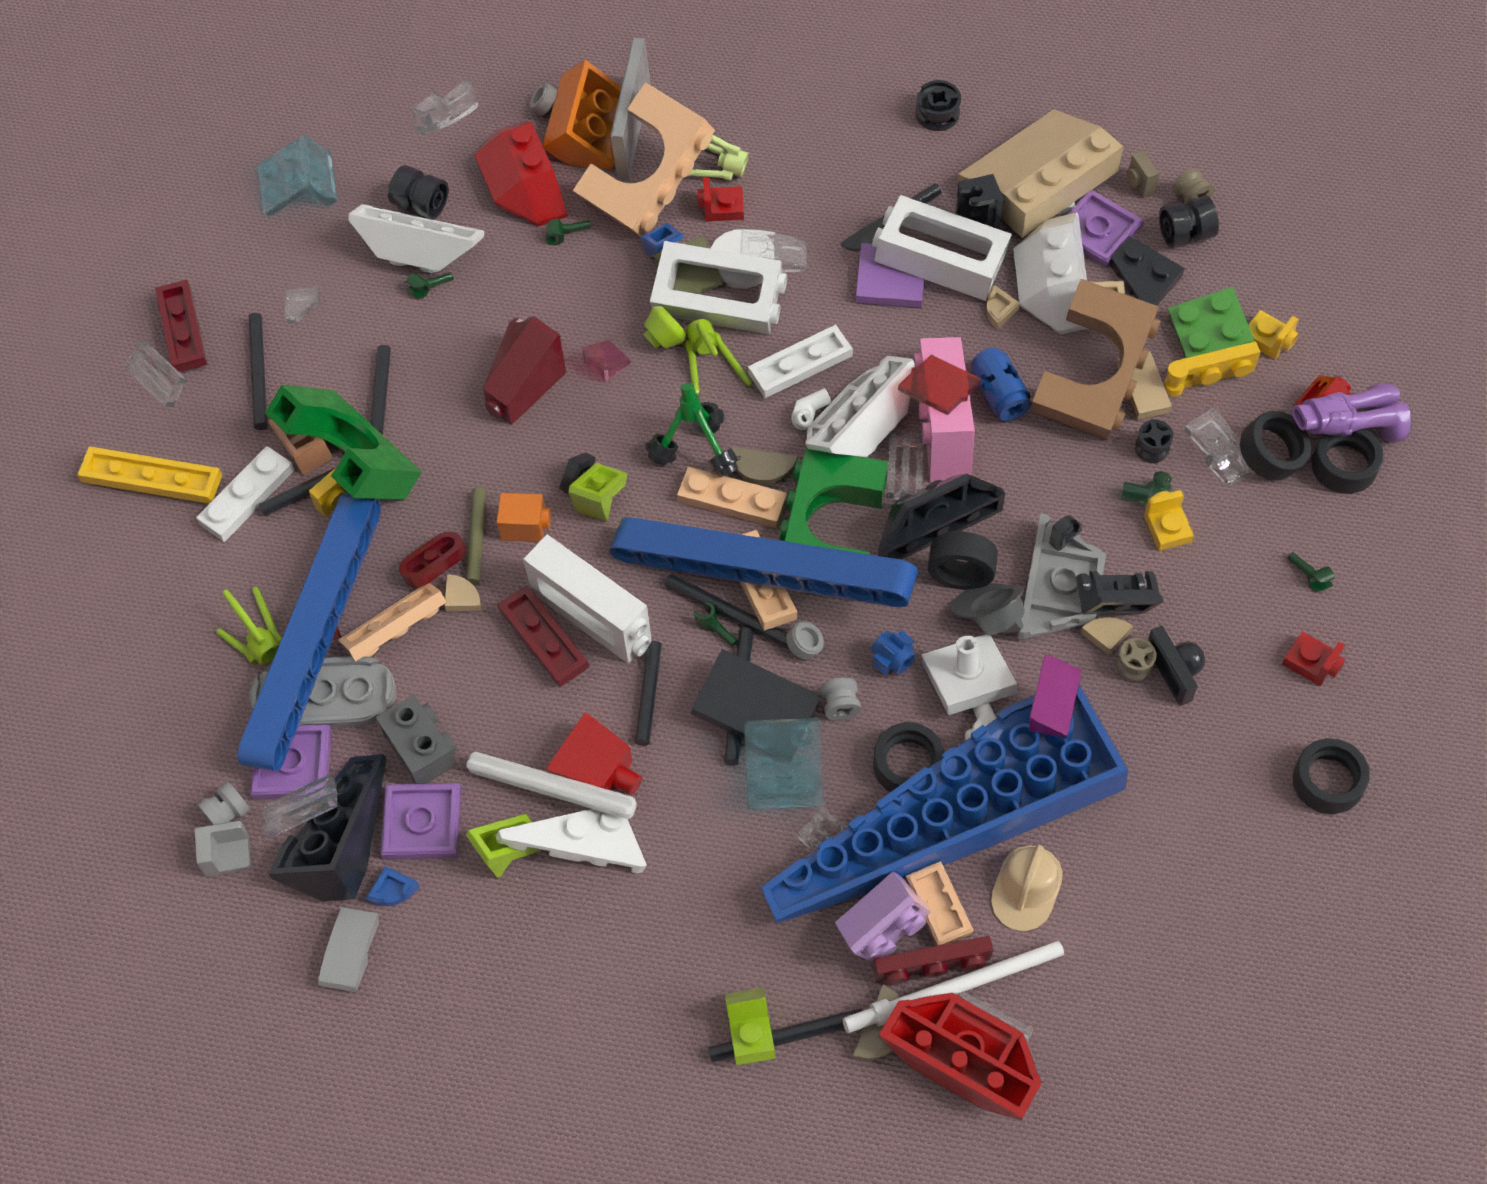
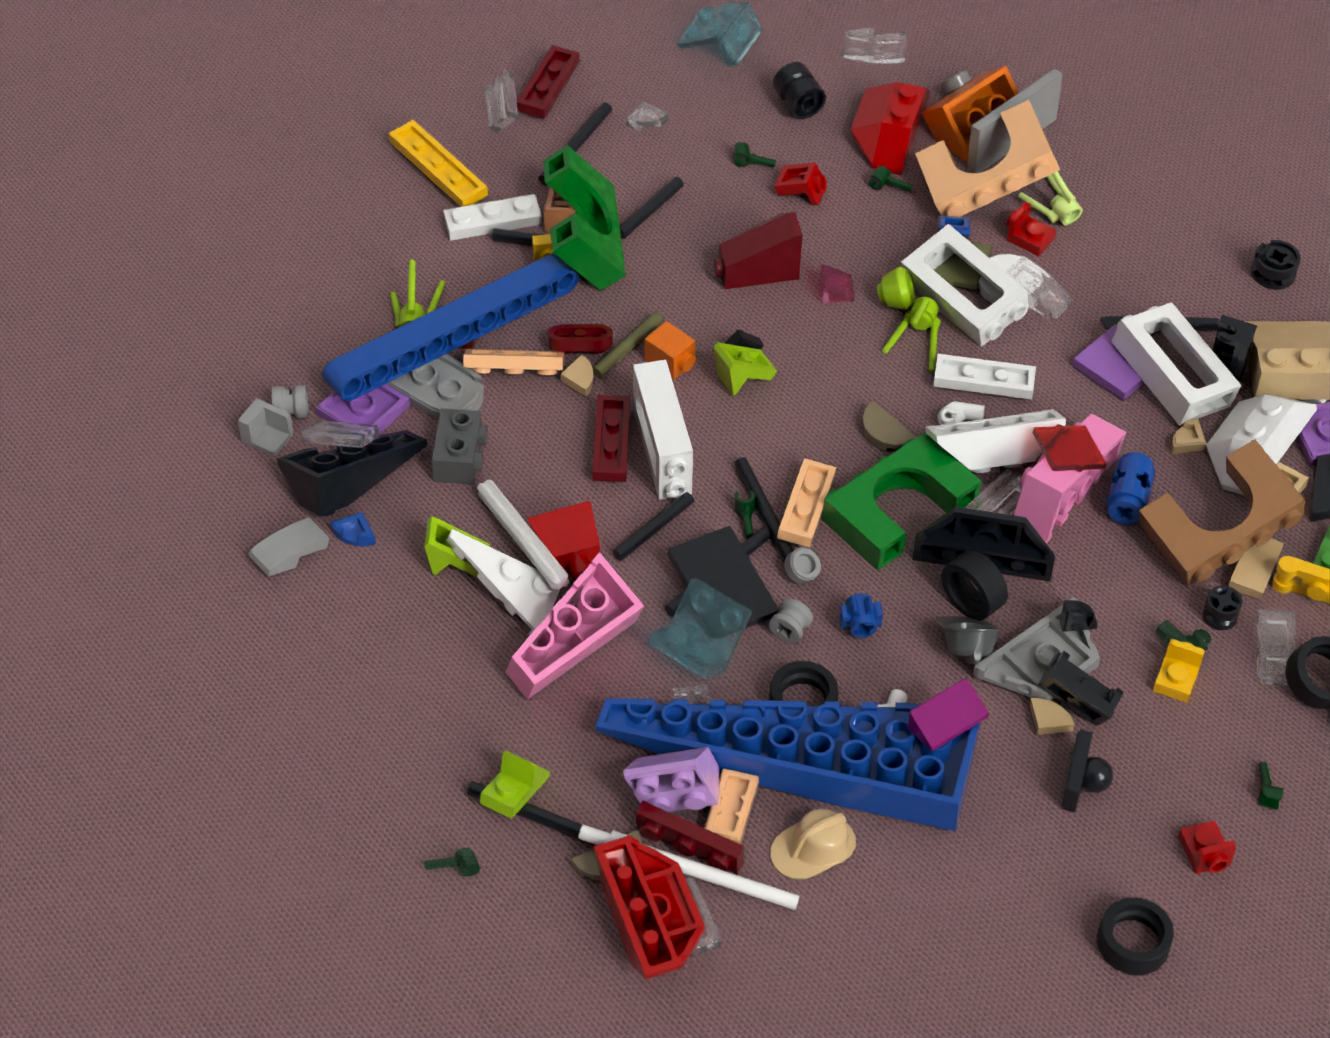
camera: 35 degrees right, 10 degrees down
(411, 238) = (764, 117): white wedge -> none
(421, 821) = (412, 499): medium lavender tile -> none
(492, 278) = (802, 179): none -> red bracket
(677, 837) = (577, 626): none -> bright pink wedge
(706, 420) = (871, 370): plant -> none
(732, 497) = (840, 435): light nougat plate -> none
(765, 562) = (816, 486): blue beam -> none
(768, 1126) = (463, 858): none -> clear green hand
(969, 673) = (907, 667): white tile -> none
(1138, 651) = (1052, 749): dark tan wheel -> none

